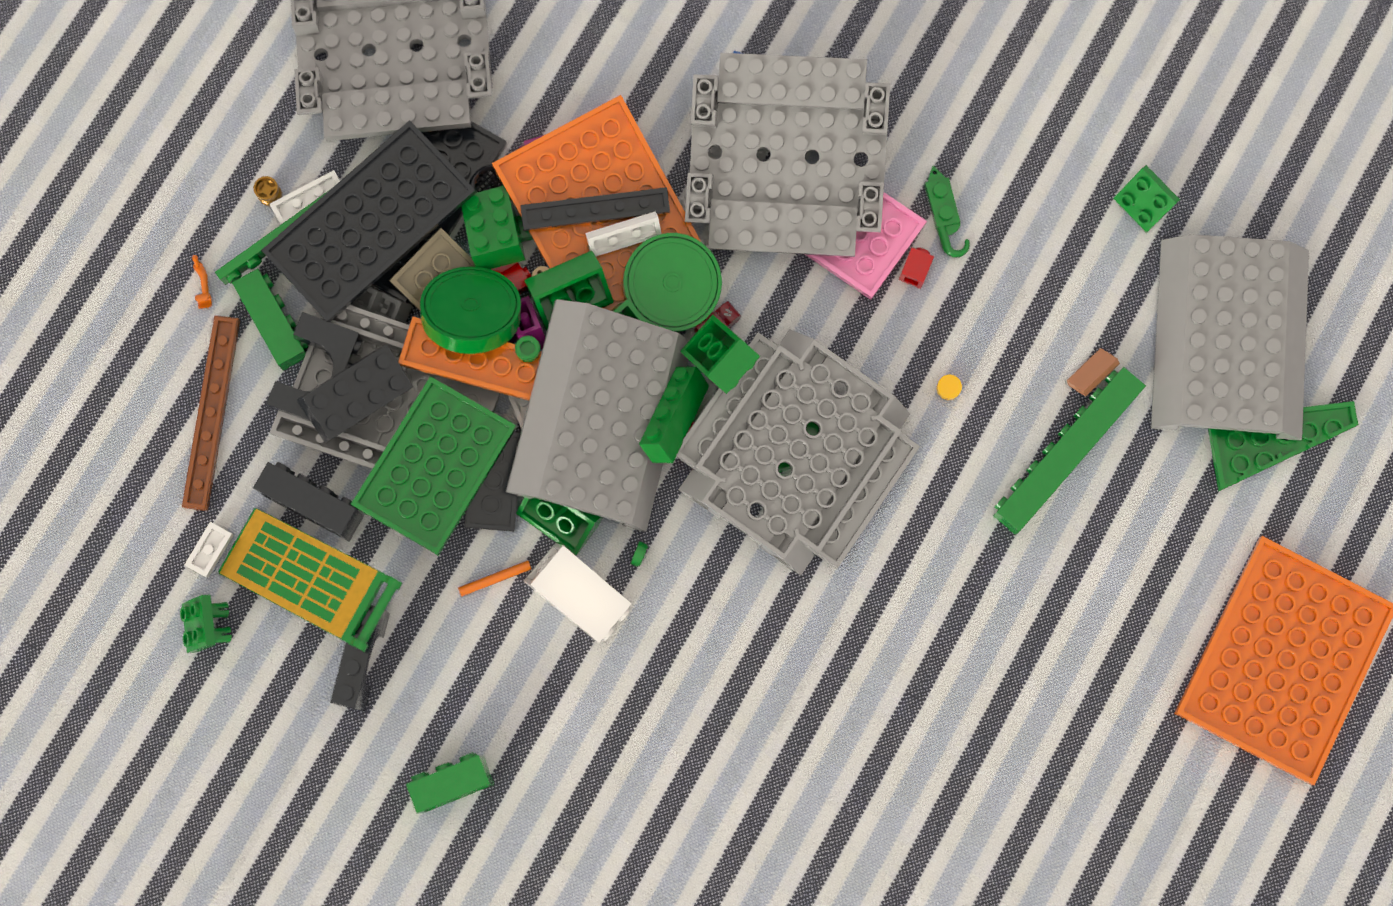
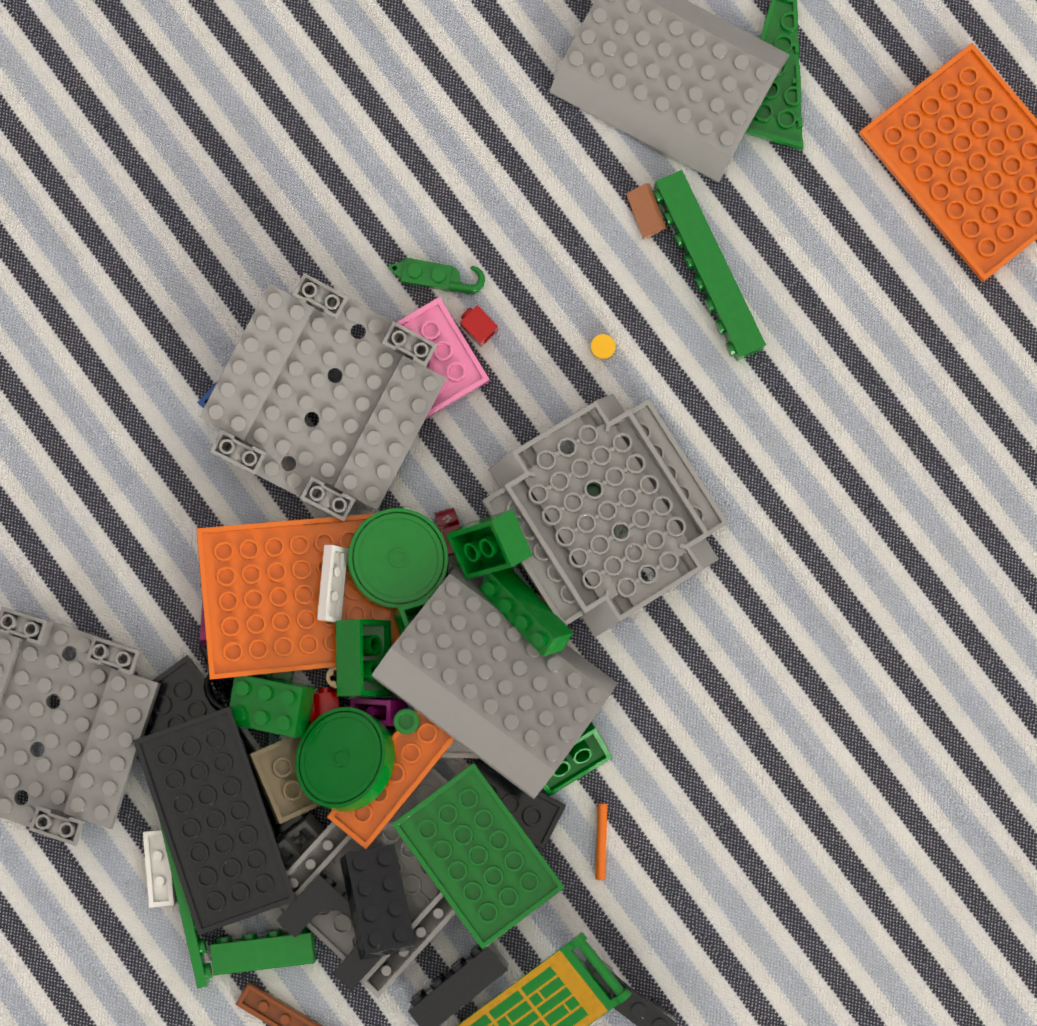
camera: 60 degrees left, 5 degrees up
(204, 300) = (215, 1007): orange piece -> none
(265, 186) = (132, 907): pearl gold wheel -> none
(449, 783) = (776, 962): green brick -> none
(578, 592) = (649, 771): white slope -> none
(594, 209) = (296, 600): black plate -> none
(639, 554) = (637, 698): green tile -> none
(1146, 198) = (508, 87): green plate -> none

